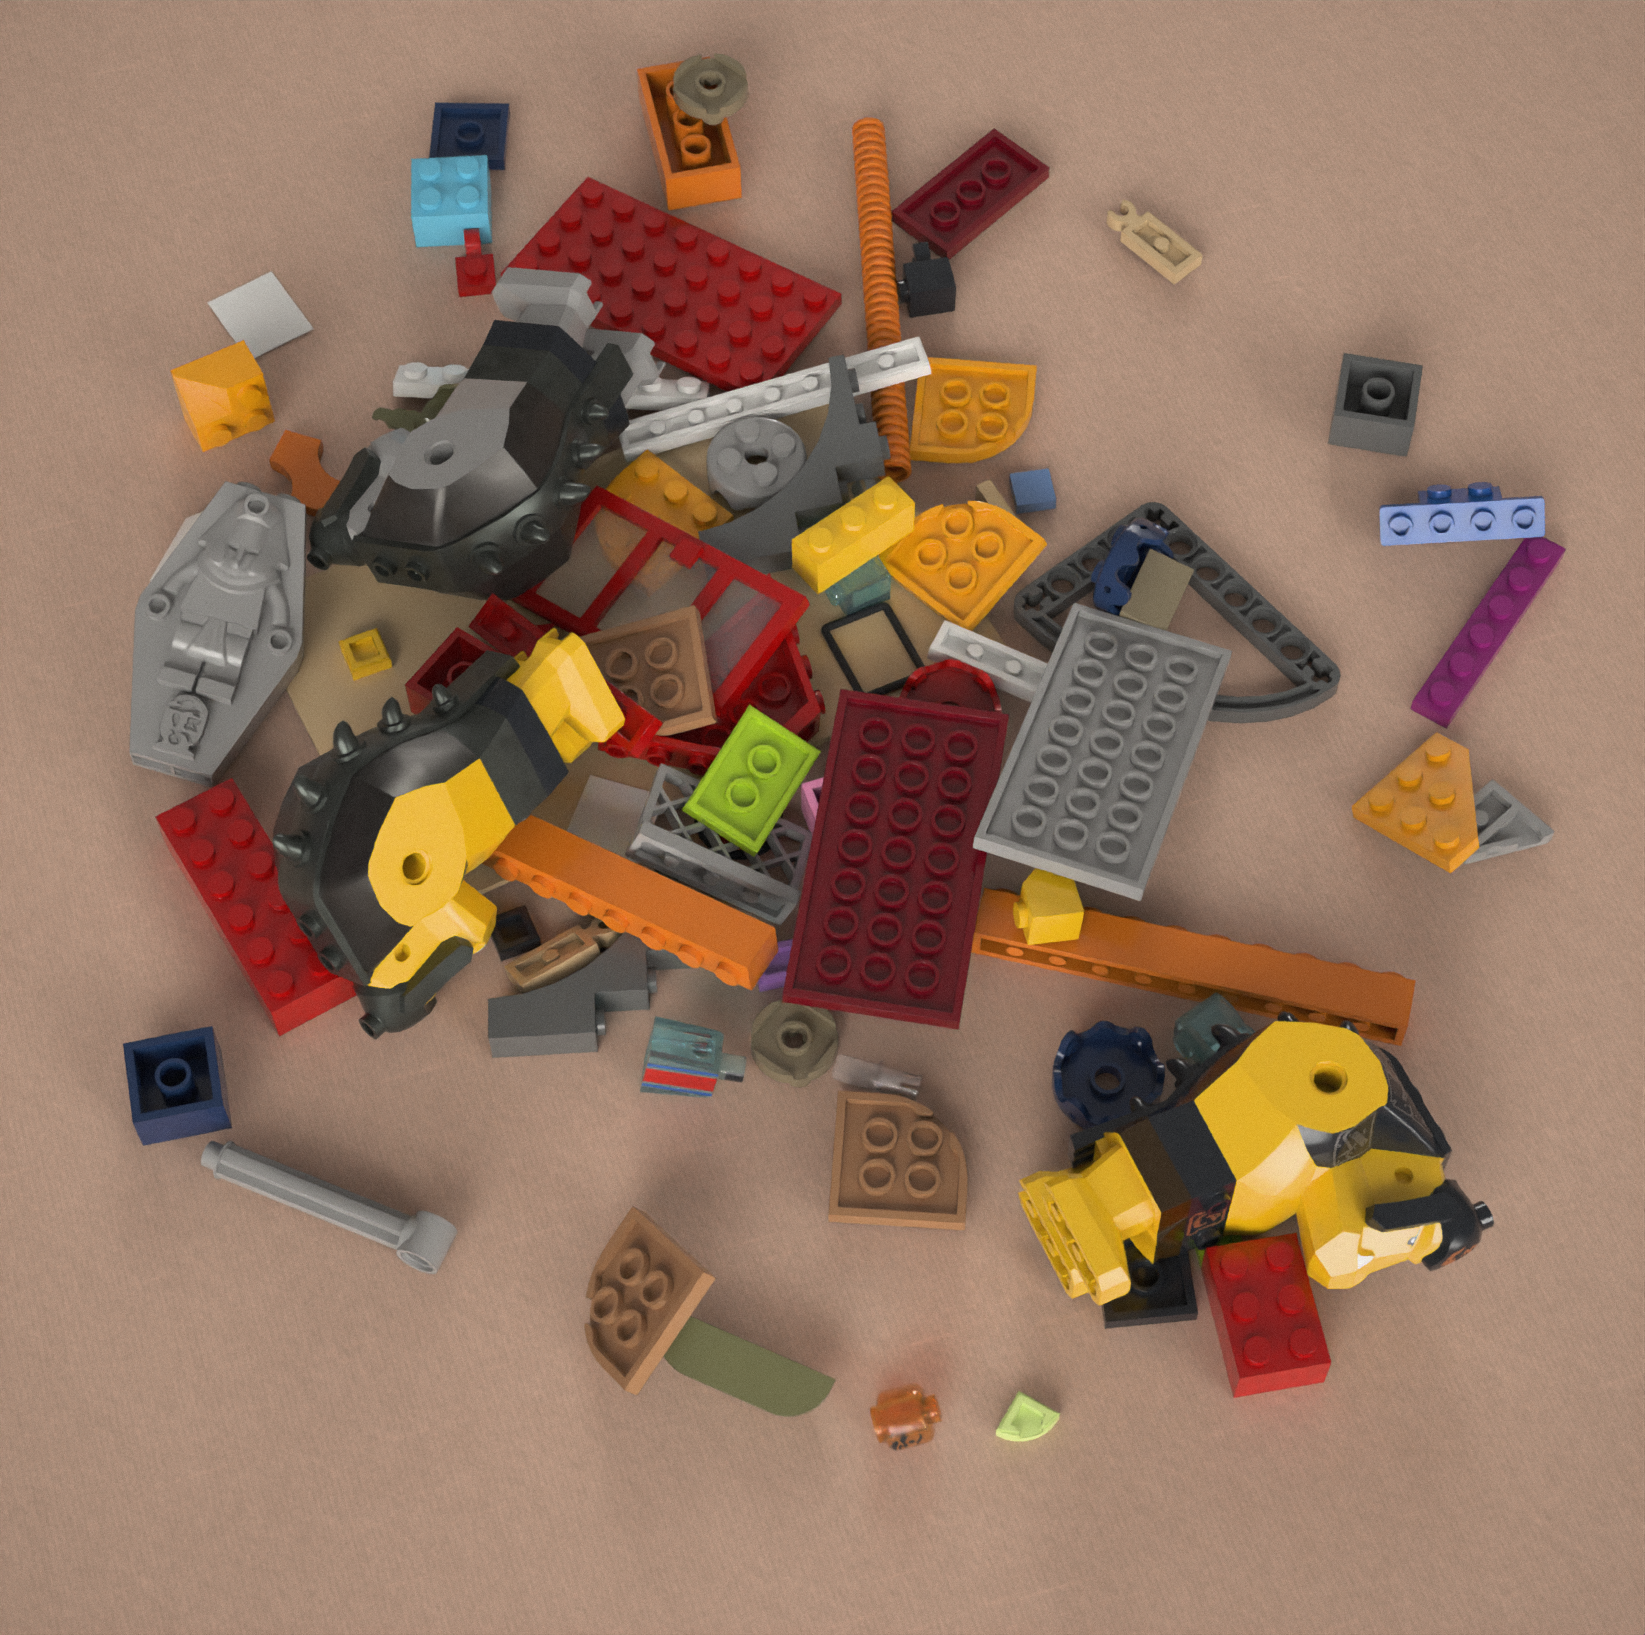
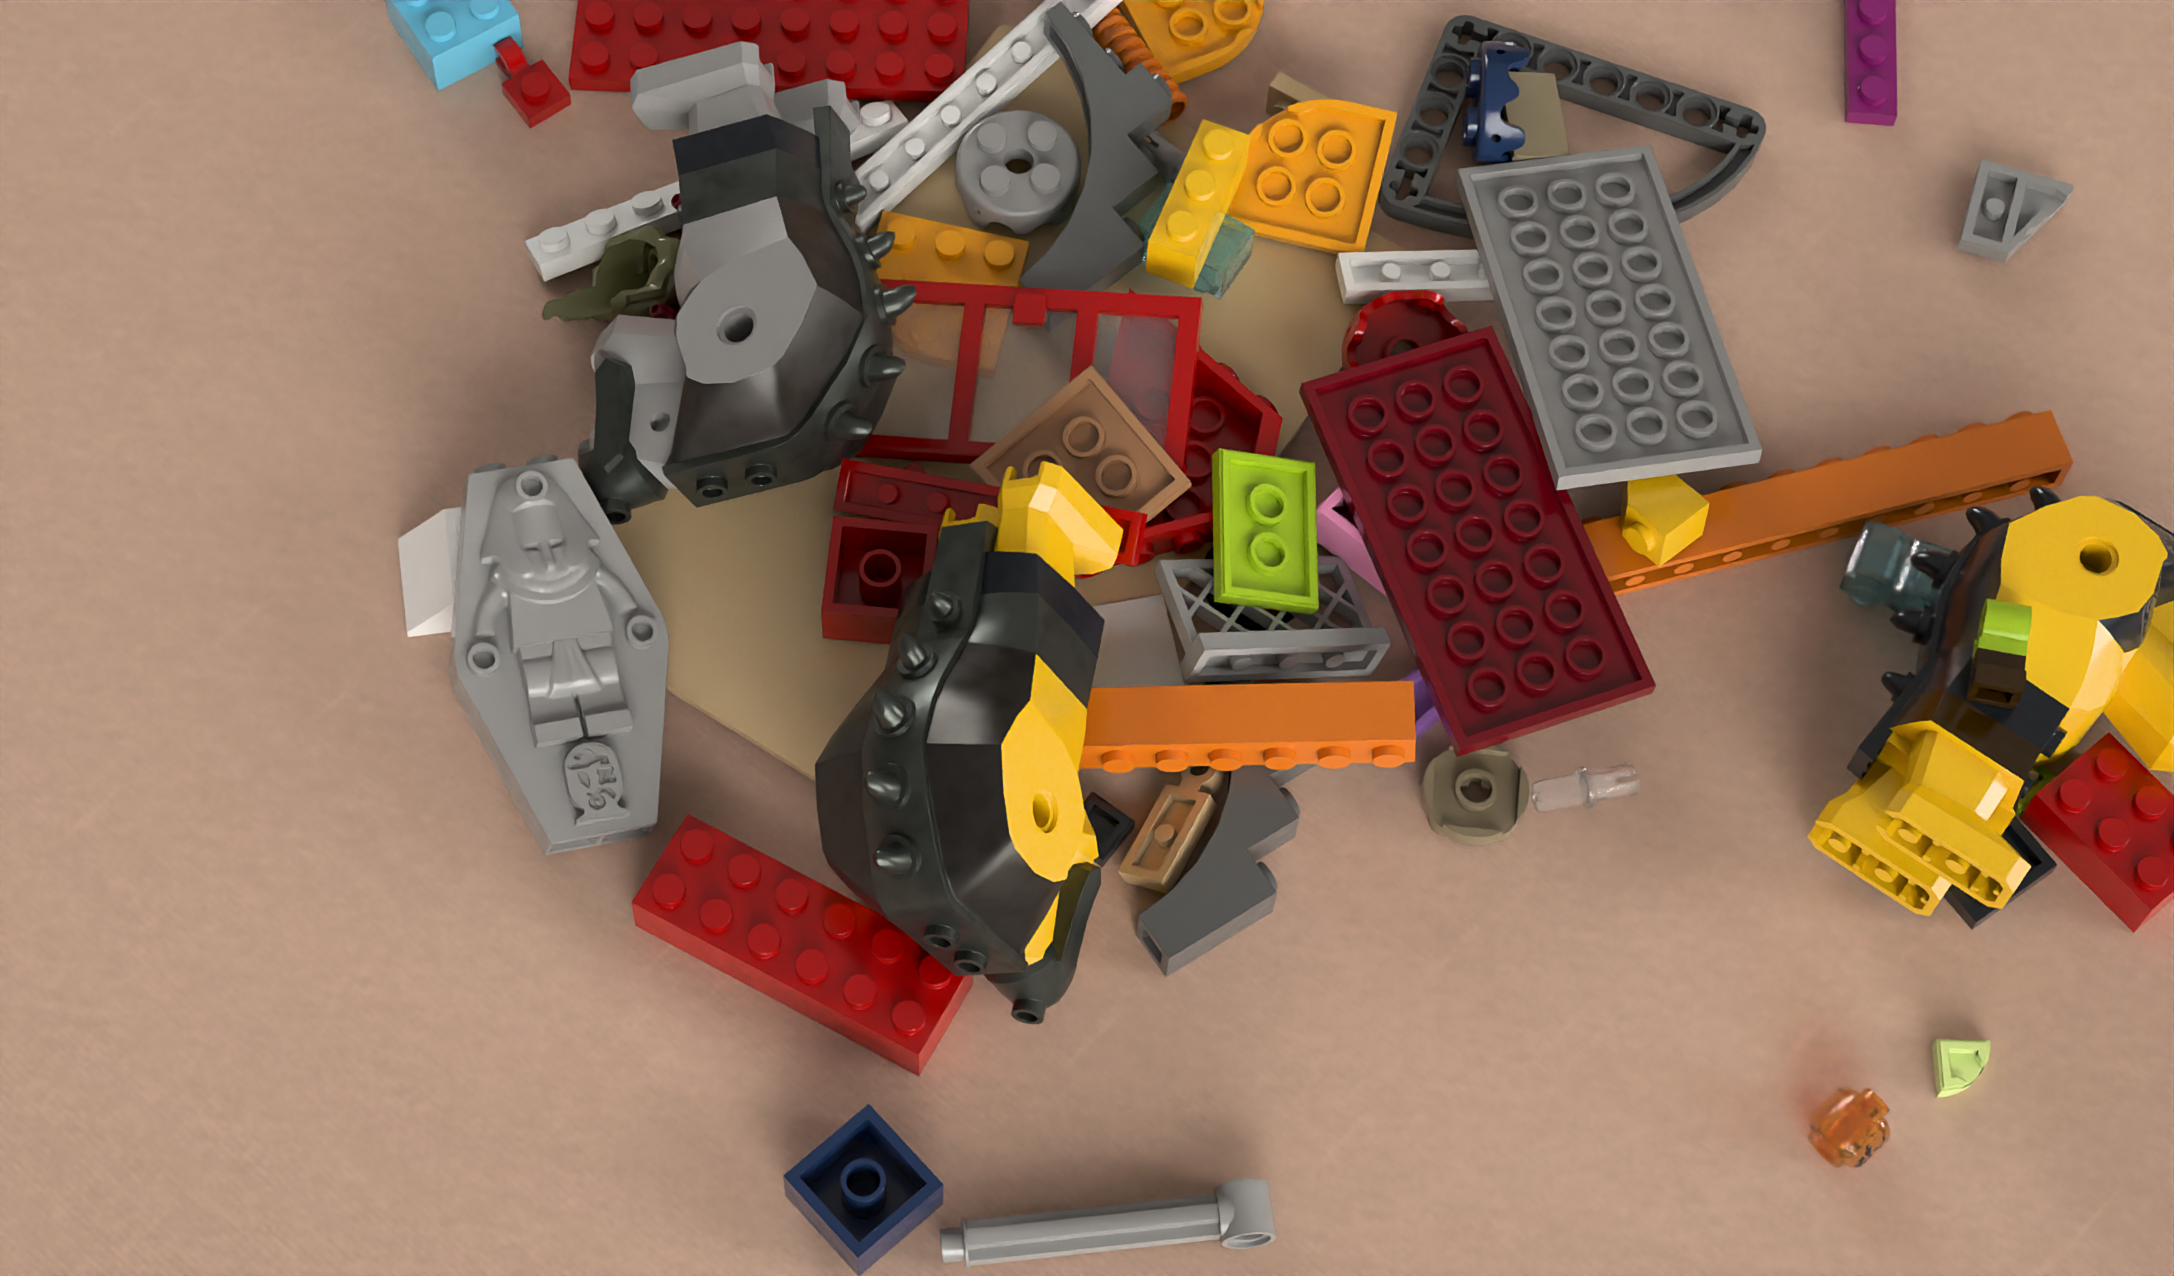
camera: 35 degrees left, 5 degrees up
(223, 396) = (356, 374): light orange slope -> none
(260, 315) = (311, 257): white sticker -> none
(299, 461) = (484, 409): orange tile -> none
(365, 654) = (725, 597): yellow tile -> none
(641, 1299) = (1518, 1151): medium nougat plate -> none
(687, 1060) = (1385, 873): clear light blue torso -> none
(747, 1370) = (1660, 1166): olive brick -> none
(841, 659) = (1256, 355): black piece -> none
(895, 1165) = (1663, 870): medium nougat plate -> none
(1032, 491) = (1317, 62): medium blue tile -> none
(1101, 1050) = (1826, 637): dark blue plate -> none
(1198, 1109) = (2000, 655): none -> leg
(1427, 804) = (1938, 216): light orange plate -> none

